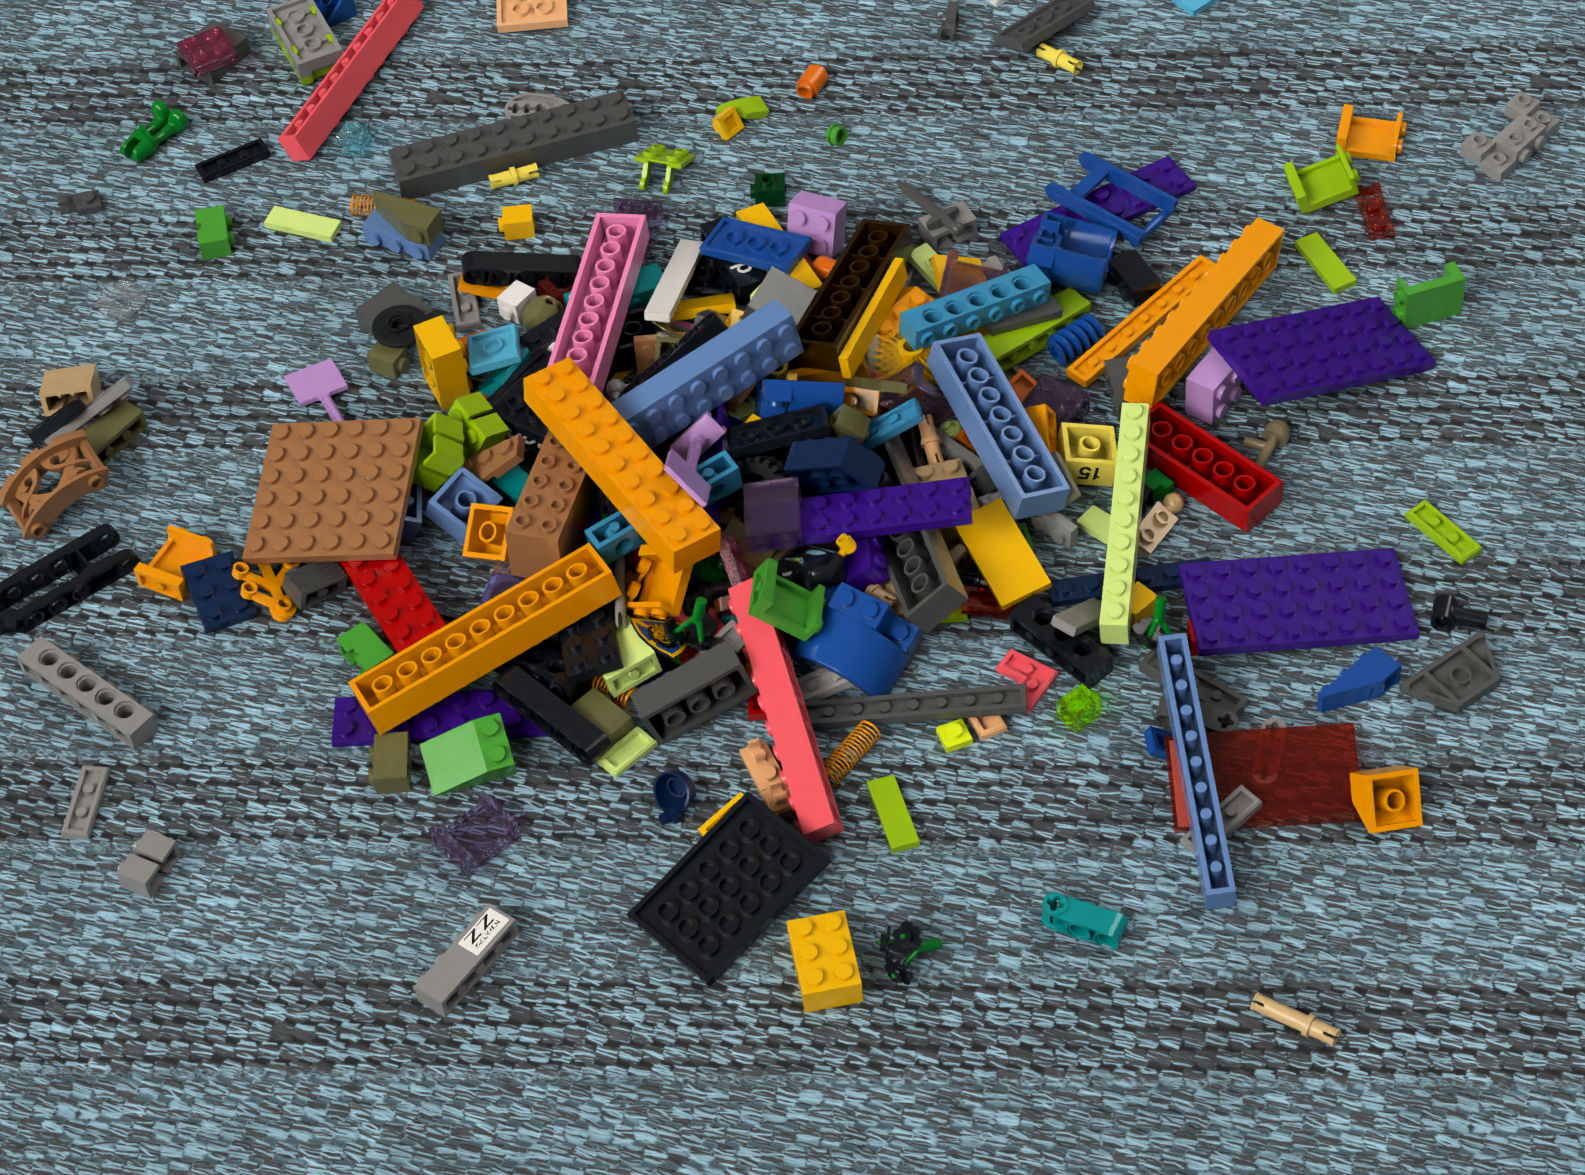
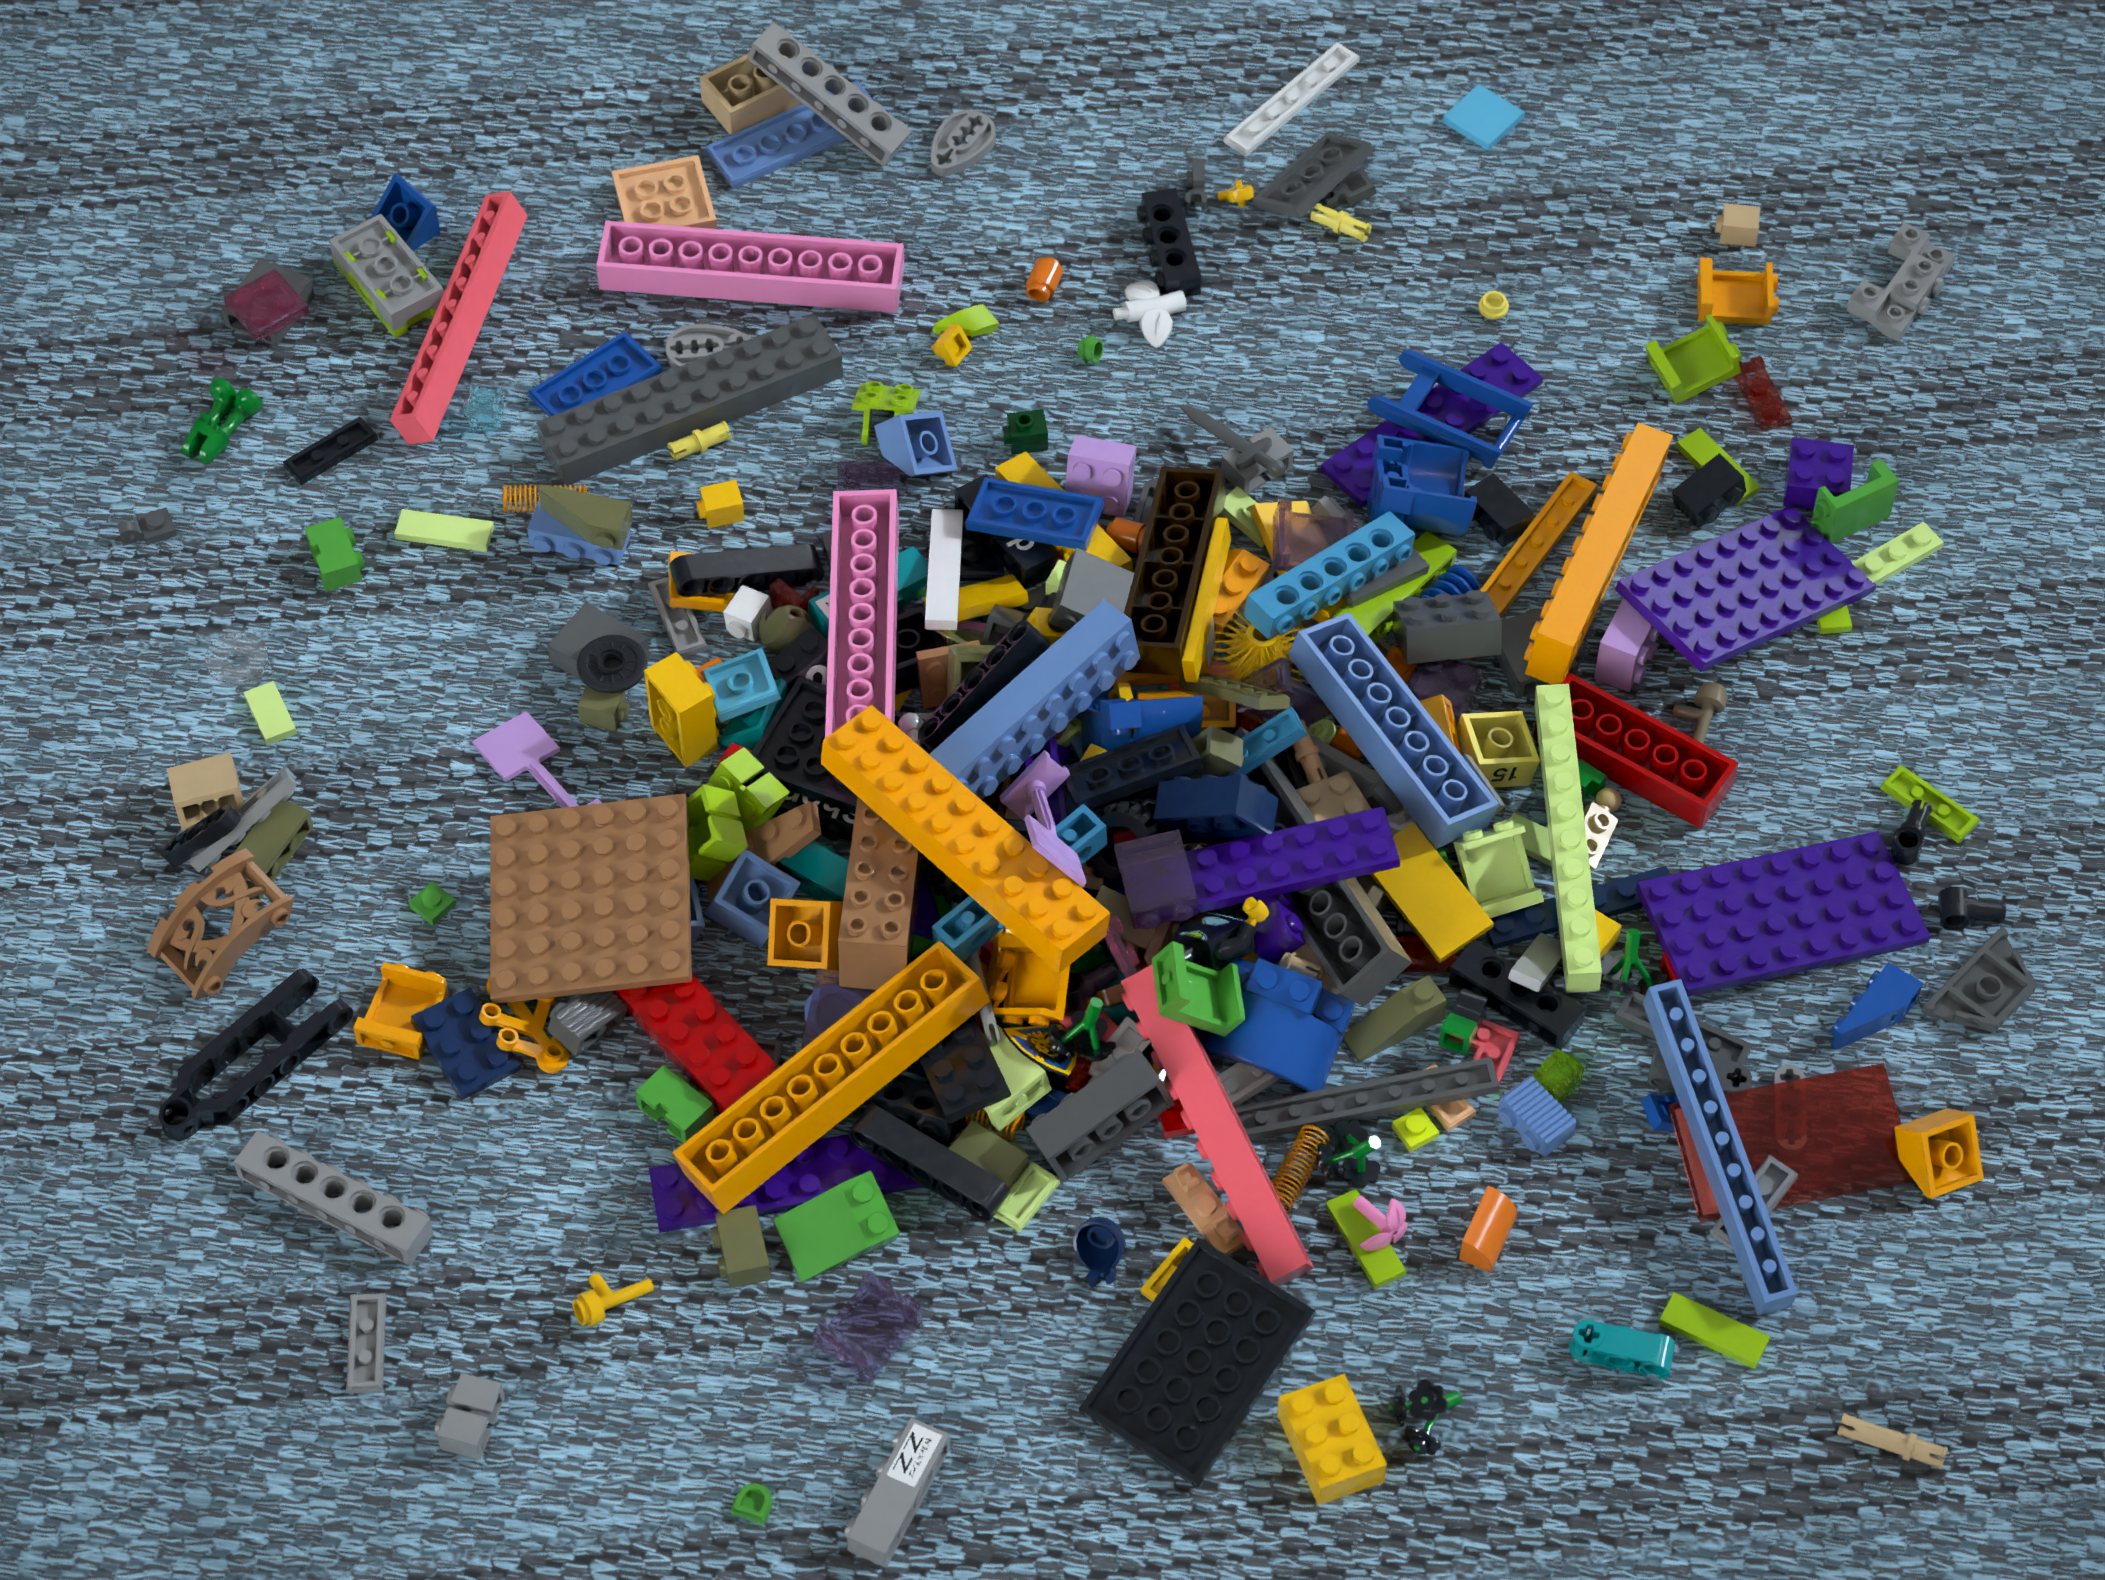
camera: 15 degrees left, 5 degrees up
(136, 341) = (270, 713): none -> yellowish green tile
(222, 489) = (432, 903): none -> bright green plate
(261, 793) = (591, 1304): none -> yellow piece
(351, 955) = (753, 1503): none -> bright green tile
(455, 118) = (597, 374): none -> blue tile
(585, 54) = (751, 266): none -> bright pink brick
(678, 188) = (917, 443): none -> medium blue slope
(891, 111) = (1151, 310): none -> white plant
(896, 737) = (1349, 1141): none -> black plant
(911, 802) = (1390, 1226): none -> bright pink plant
(918, 63) = (1170, 242): none -> black brick
(959, 649) = (1397, 1019): none -> olive slope
(982, 31) = (1237, 194): none -> yellow piece
(993, 816) = (1488, 1230): none -> orange brick
(1010, 655) = (1463, 1021): none -> leg
(1055, 735) = (1536, 1116): none -> medium blue brick
(1064, 542) = (1497, 868): none -> yellowish green panel
(1065, 356) = (1447, 627): none -> dark grey brick
(1074, 35) = (1352, 189): none -> dark grey plate
(1165, 916) = (1714, 1330): none -> lime tile
(1168, 128) = (1493, 305): none -> light yellow plate
(1311, 278) = (1709, 491): none -> black brick
(1383, 84) = (1738, 225): none -> tan brick
(1395, 387) = (1835, 622): none -> lime tile
(1403, 262) = (1816, 465): none -> dark purple brick
(1421, 552) = (1911, 833): none -> black pin
(1461, 340) = (1899, 553): none -> yellowish green plate

